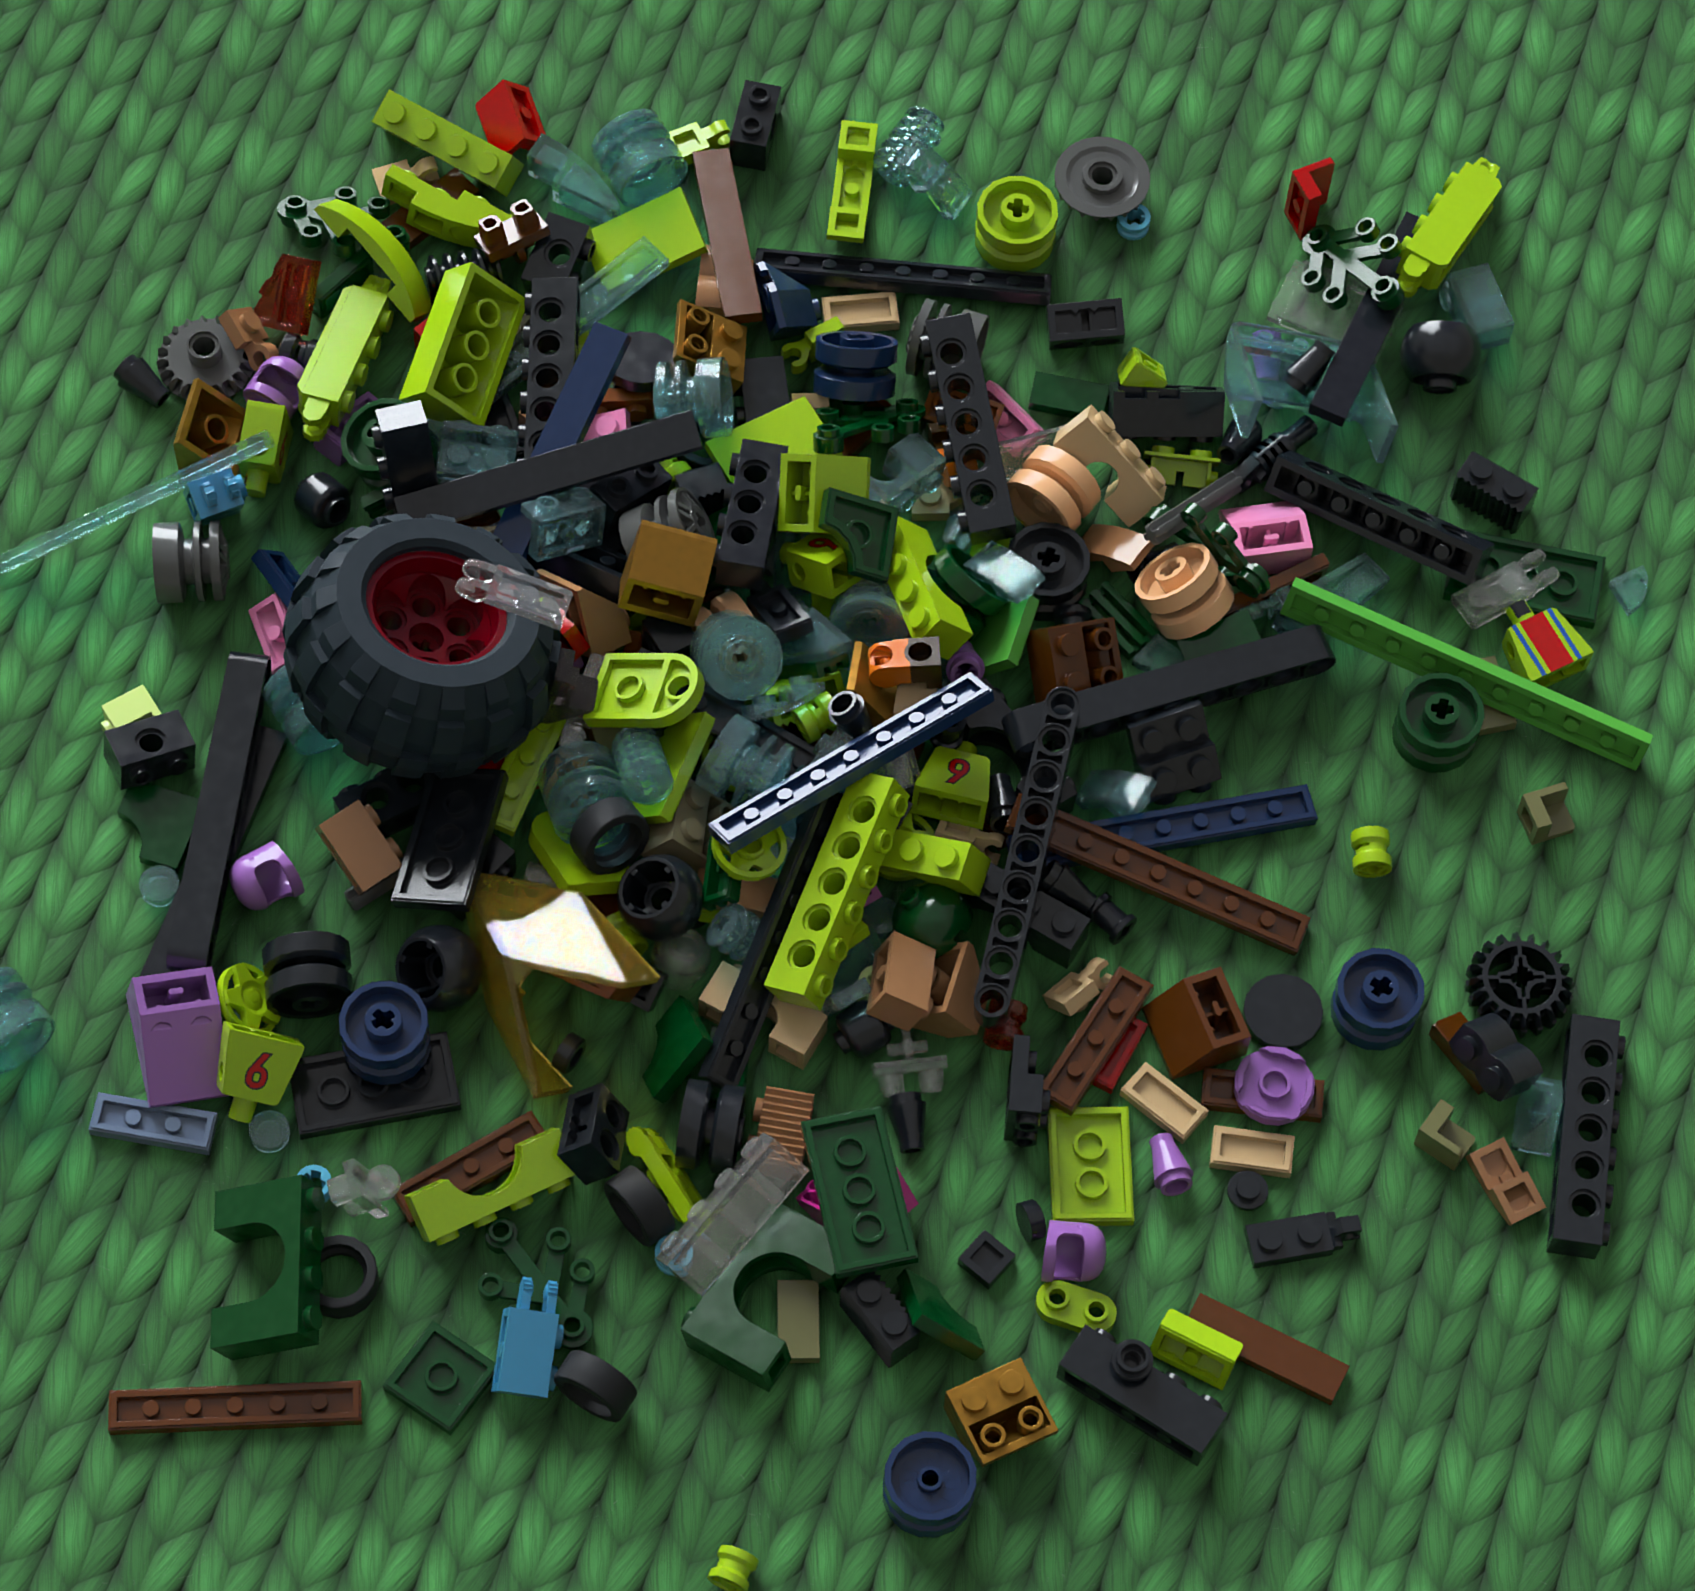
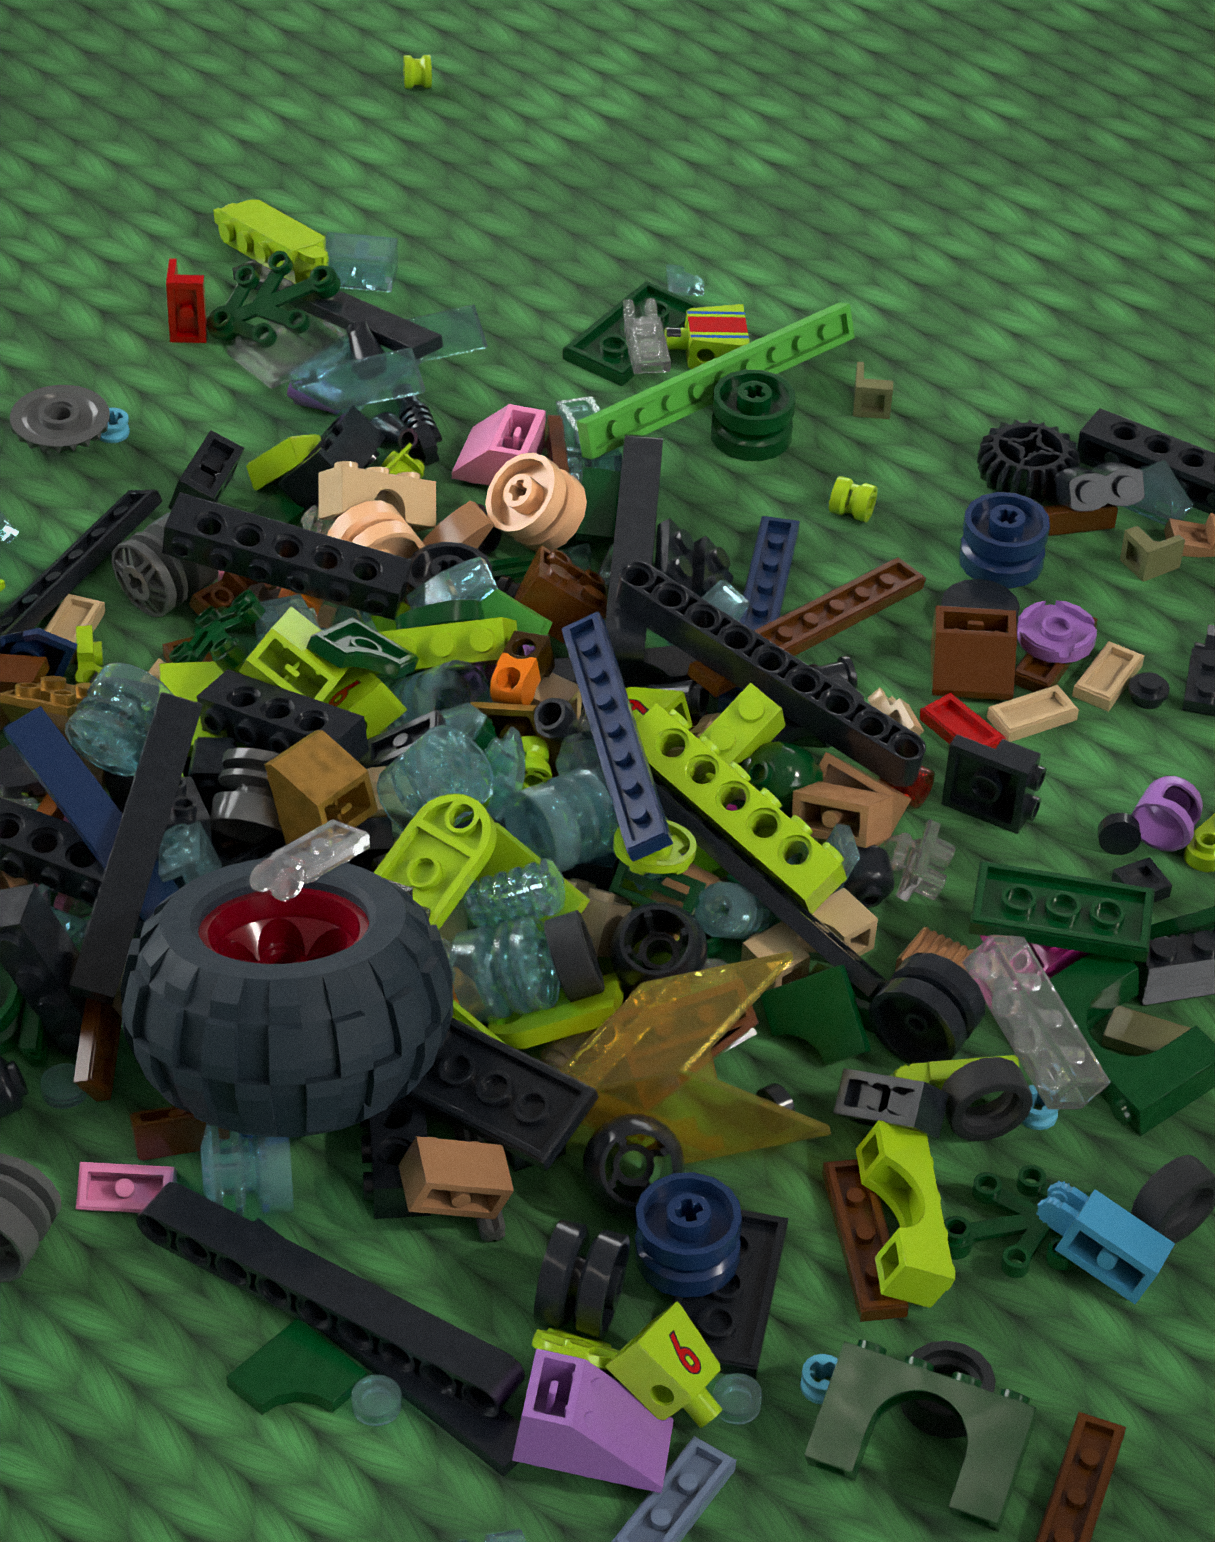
camera: 65 degrees left, 20 degrees down
(129, 708) = (152, 1346): yellowish green brick -> none
(149, 749) = (209, 1339): black brick -> none
(264, 877) = (435, 1295): medium lavender helmet -> none
(278, 572) = (73, 1153): dark blue tile -> none
(364, 1189) = (864, 1311): clear hips -> none
(441, 1378) = (1099, 1344): dark green tile -> none
(855, 366) = (146, 625): dark blue wheel -> none
(908, 1120) = (962, 878): black cone -> none
(1016, 223) = (63, 486): lime wheel -> none
(1091, 1166) = (1084, 781): lime tile -> none
(1096, 1039) = (939, 709): reddish brown tile -> none
(1170, 1167) = (1102, 726): medium lavender cone -> none
(1207, 499) = (458, 465): dark grey axle -> none
(1249, 578) = (455, 493): dark green plant -> none
(1379, 517) = (533, 372): black brick -> none
(1441, 355) = (401, 282): black wheel -> none
(1493, 492) = (546, 312): black brick -> none

